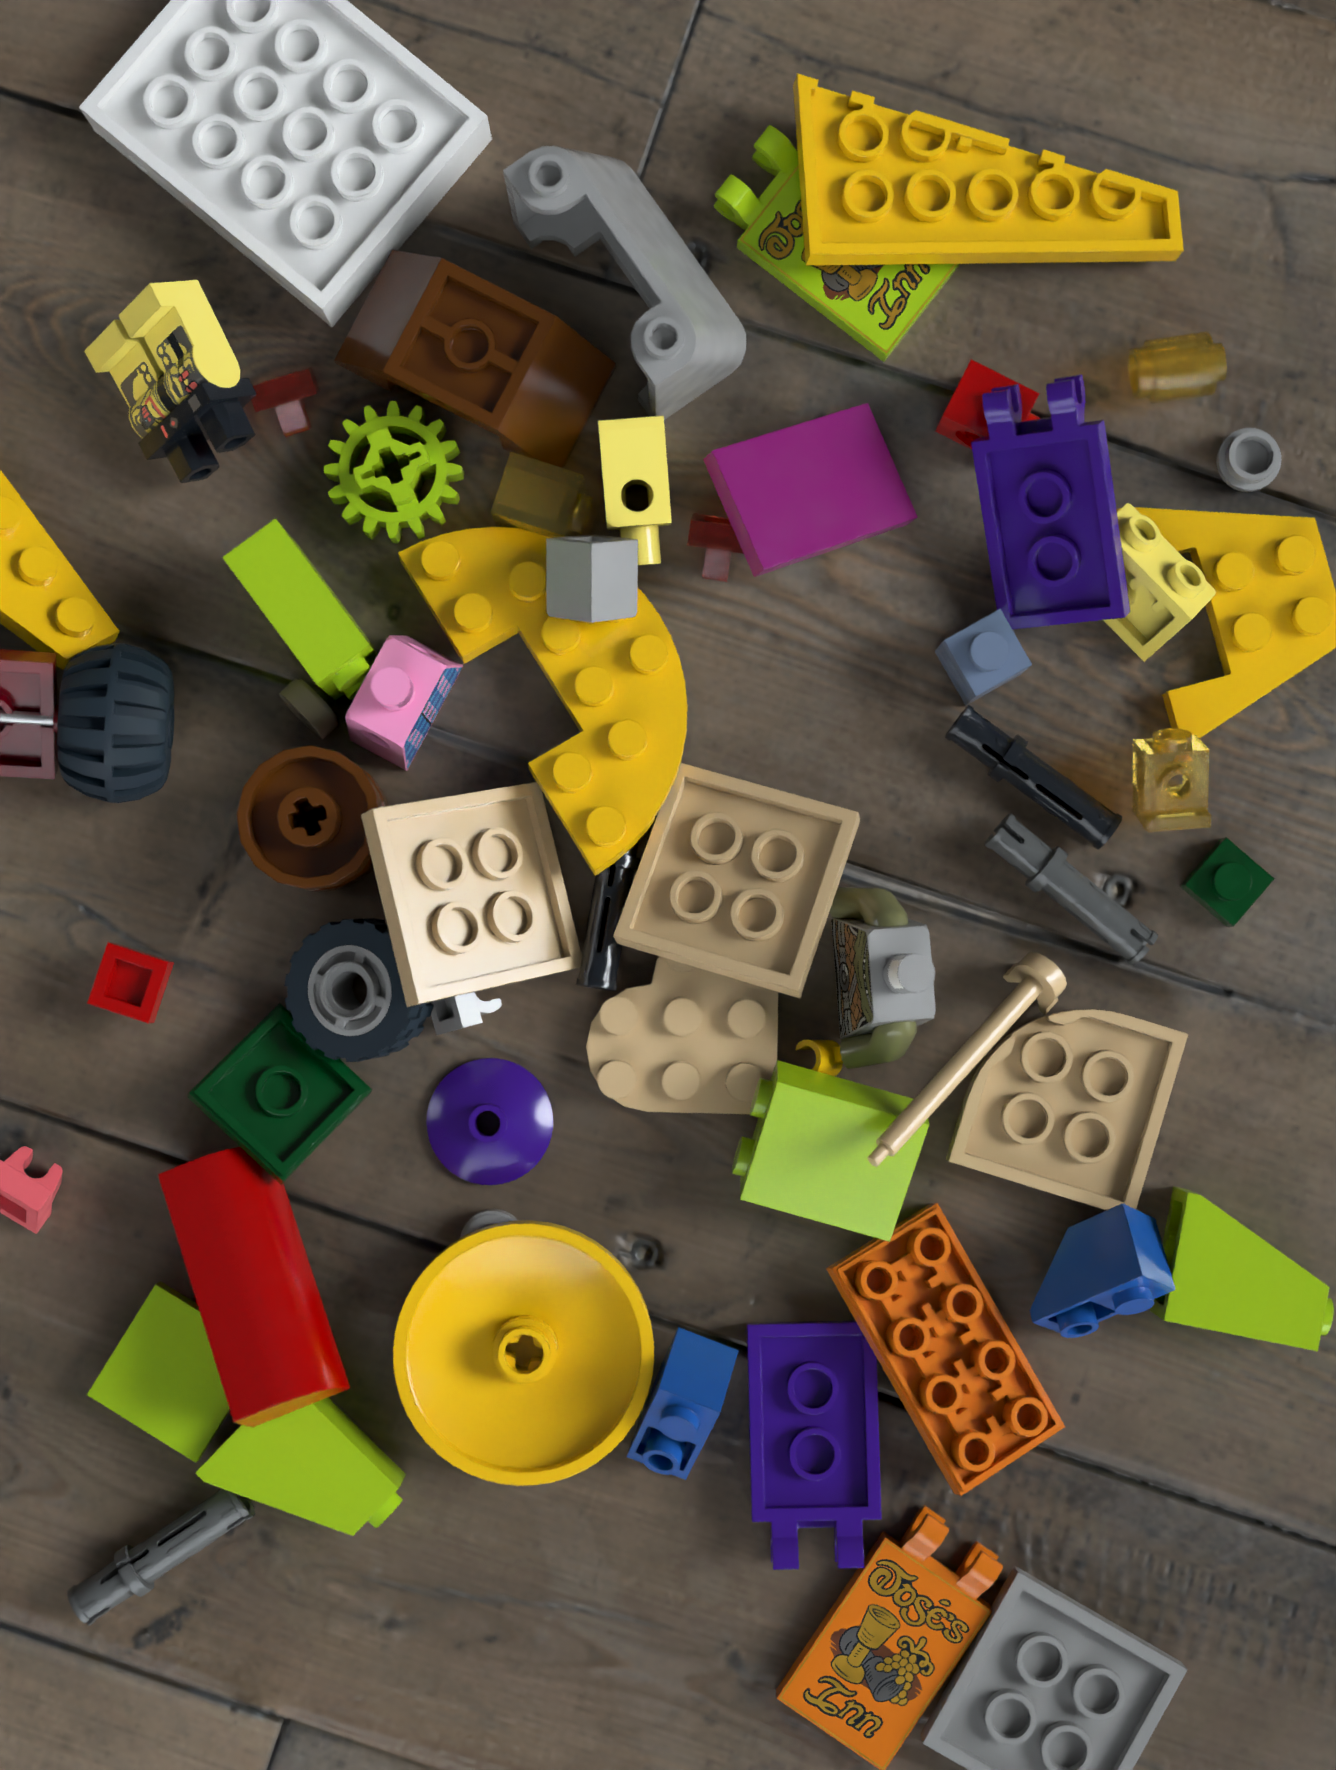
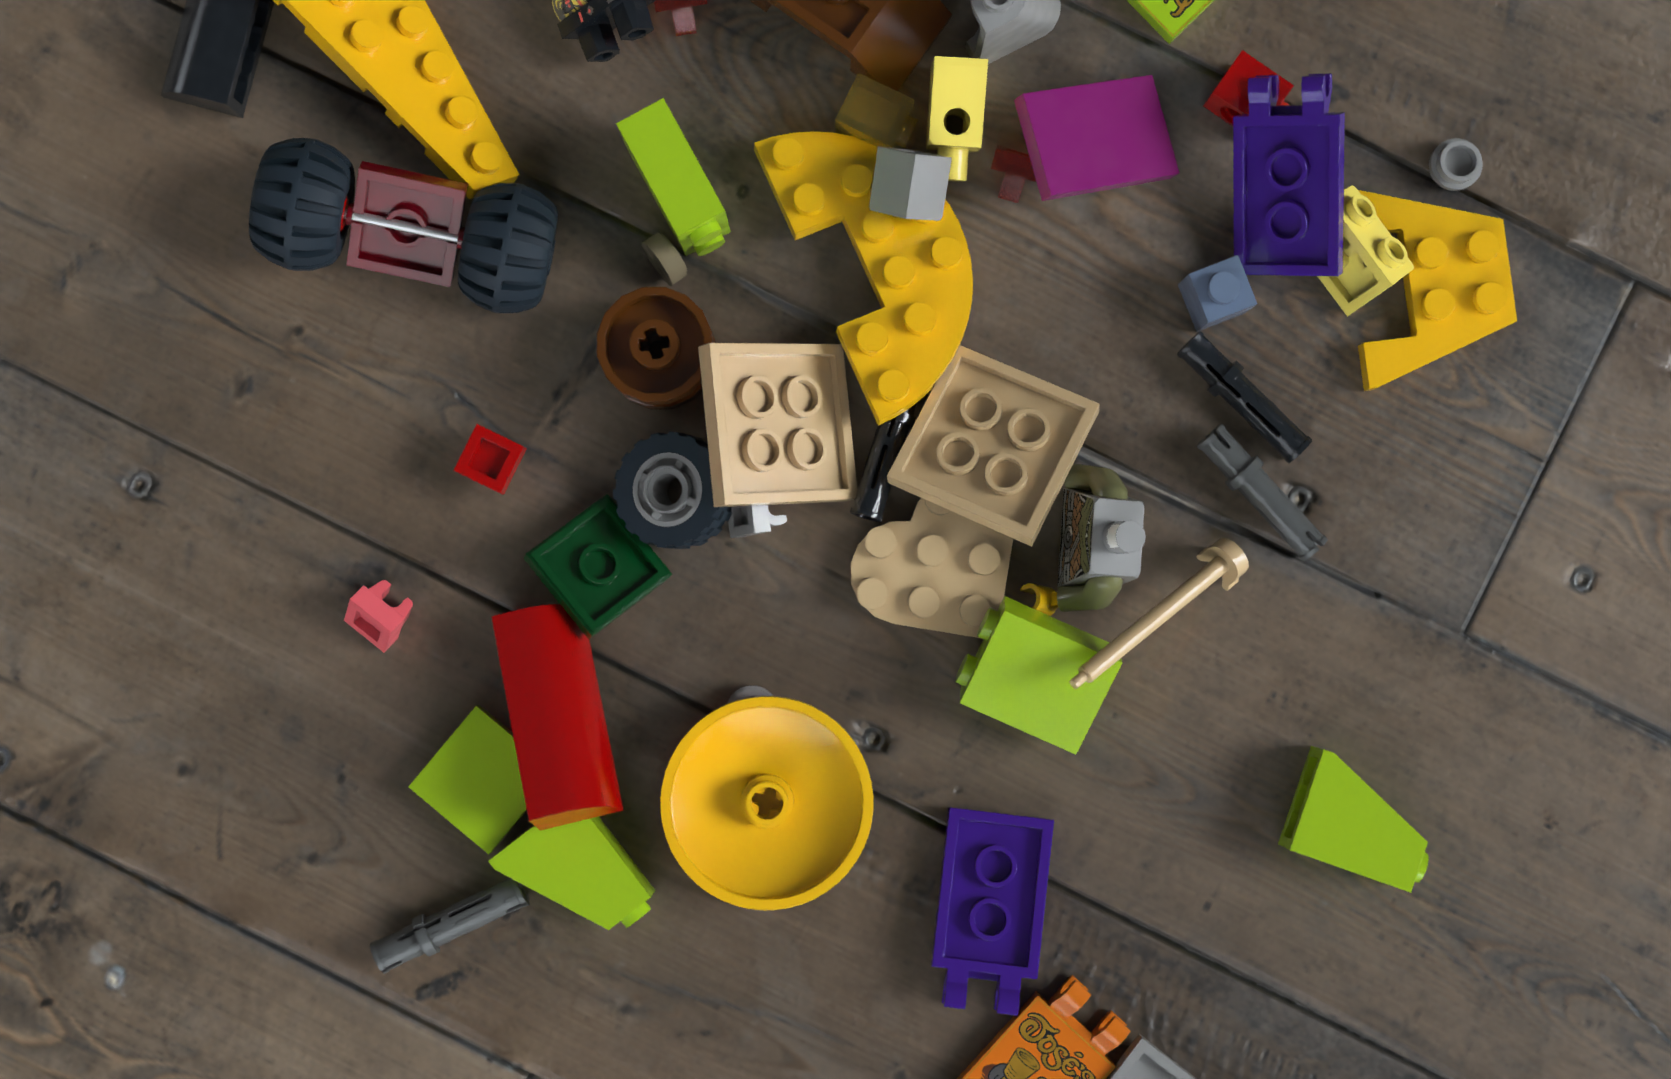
camera: 10 degrees right, 0 degrees up
(371, 479) = (741, 82): lime gear -> none
(400, 699) = (739, 262): bright pink torso -> none
(523, 1116) = (791, 608): dark purple dish -> none
(683, 1404) = (889, 863): blue slope -> none
(946, 1349) = (1108, 849): orange tile -> none
(1071, 1105) = (1238, 667): tan plate -> none
(1101, 1271) = (1244, 804): blue slope -> none
(1154, 764) = (1346, 398): clear yellow brick -> none
(1176, 367) = (1407, 81): clear yellow brick -> none
(1227, 882) = (1389, 505): dark green plate -> none

